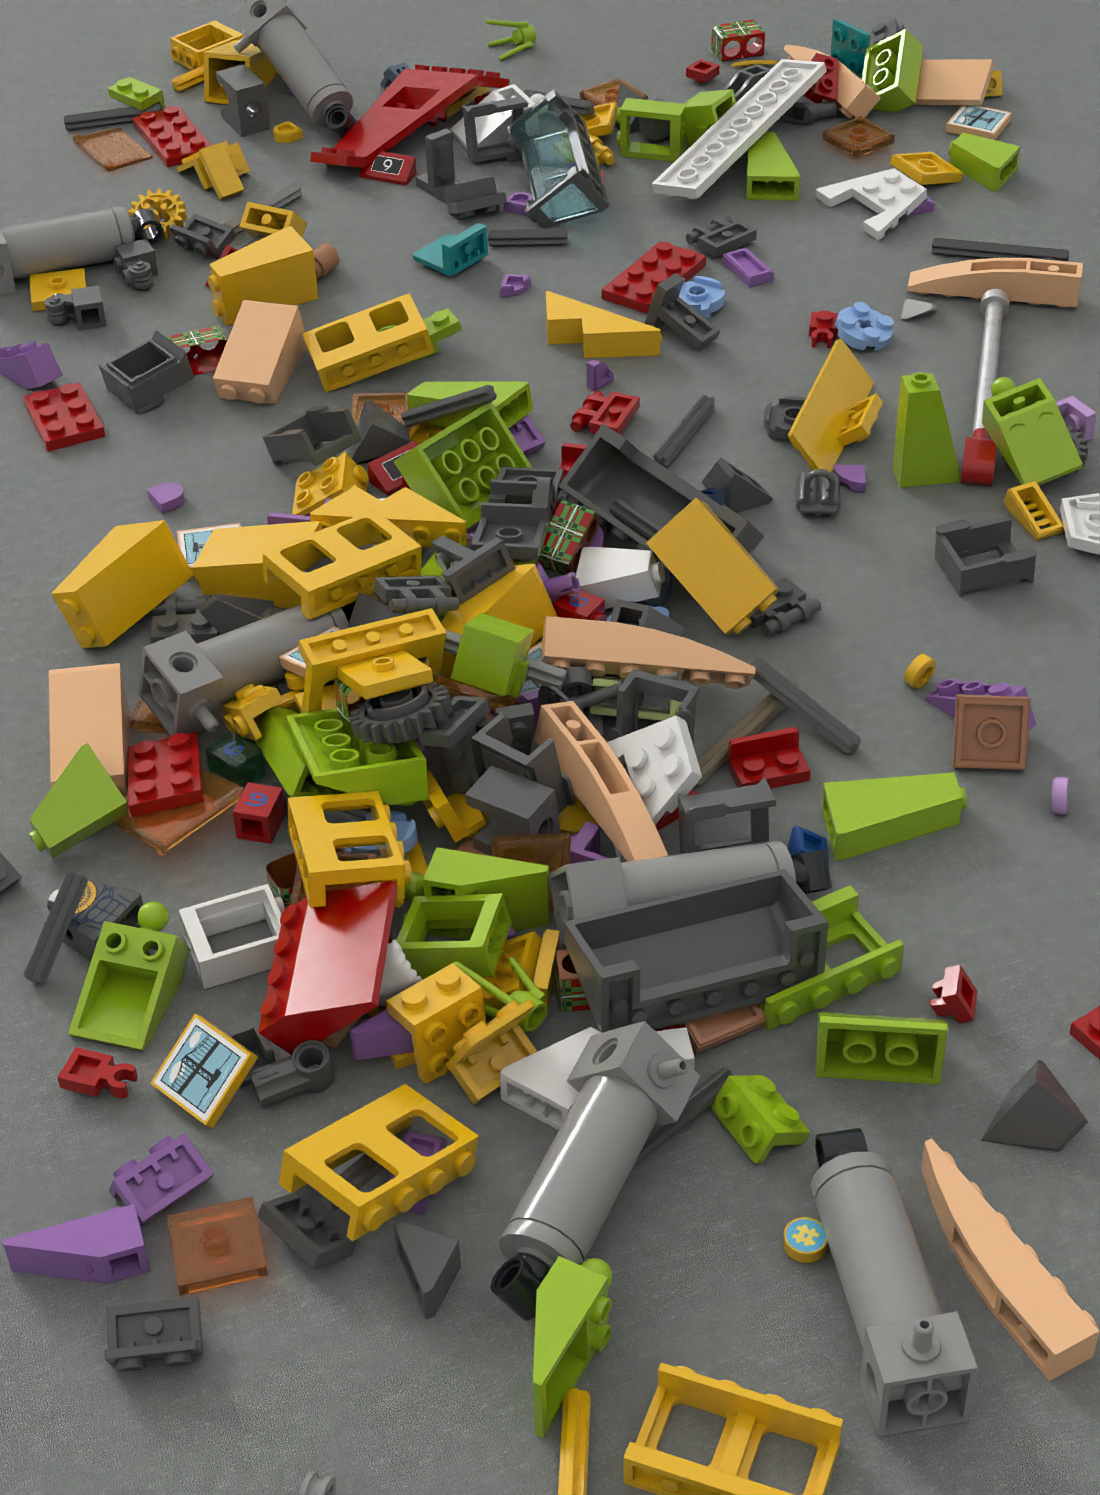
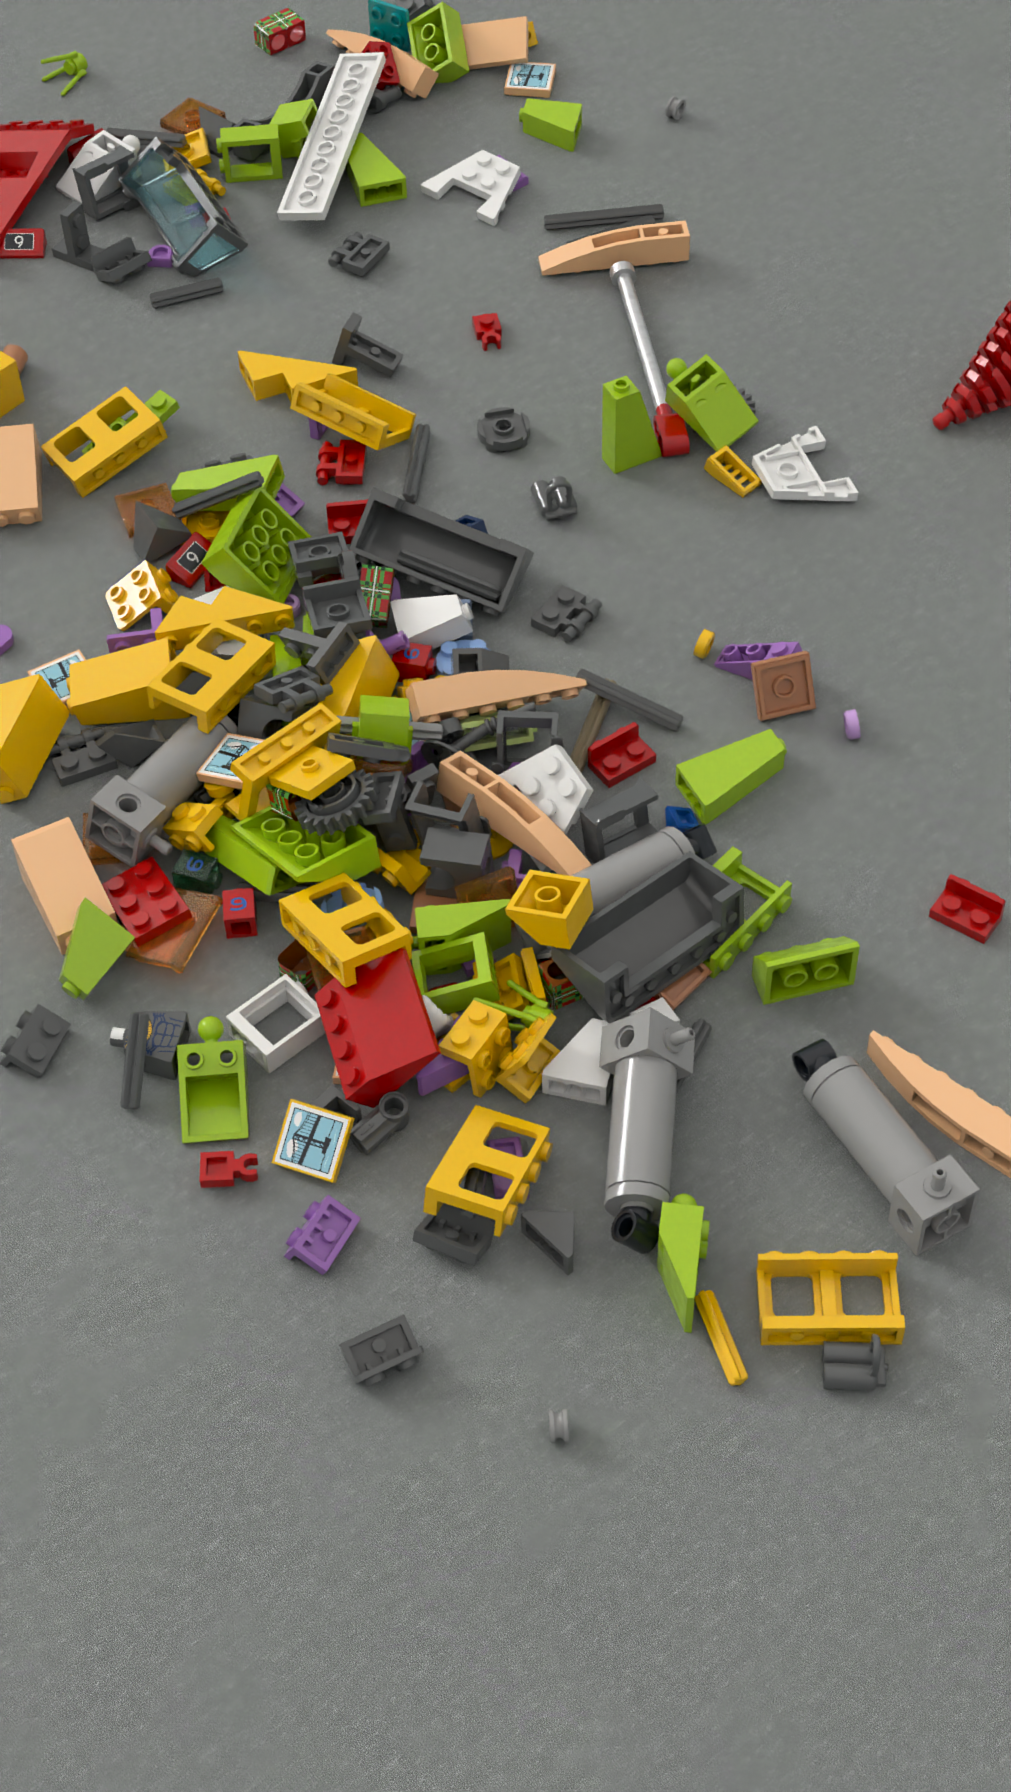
camera: 20 degrees left, 10 degrees up
(86, 1249) = (297, 1305): medium lavender slope -> none
(216, 1245) = (389, 1271): clear orange plate -> none
(296, 439) = (88, 554): dark grey piece -> none
(455, 253) = (128, 326): teal bracket -> none
(463, 669) = (371, 750): none -> dark grey hinge
(514, 284) = (198, 346): medium lavender tile -> none
(578, 879) = (551, 907): none -> yellow slope
(637, 367) = (354, 412): none -> yellow window
(638, 283) = (318, 310): red plate -> none
(702, 71) = (261, 72): red plate -> none
(703, 295) = (380, 320): light blue plate -> none
(714, 567) = (513, 596): yellow slope -> none
(739, 489) = (486, 507): dark grey slope -> none
(744, 64) = (308, 57): yellow piece -> none
(748, 267) = (395, 281): medium lavender tile -> none
(758, 1115) = (738, 1049): lime bracket -> none
(805, 1240) = (810, 1131): tile -> none
(835, 410) = (538, 416): yellow bracket -> none
(851, 475) = (573, 473): medium lavender tile -> none
(858, 136) = (433, 118): clear orange plate -> none
(864, 327) = (517, 313): light blue plate -> none
(915, 308) = (557, 291): white slope -> none
(926, 168) = (506, 141): yellow tile -> none
(955, 995) = (841, 910): red tile -> none
(964, 540) = (692, 513): dark grey piece -> none
(1036, 1113) = (932, 986): dark grey slope -> none
(1078, 415) = (736, 371): lavender bracket -> none

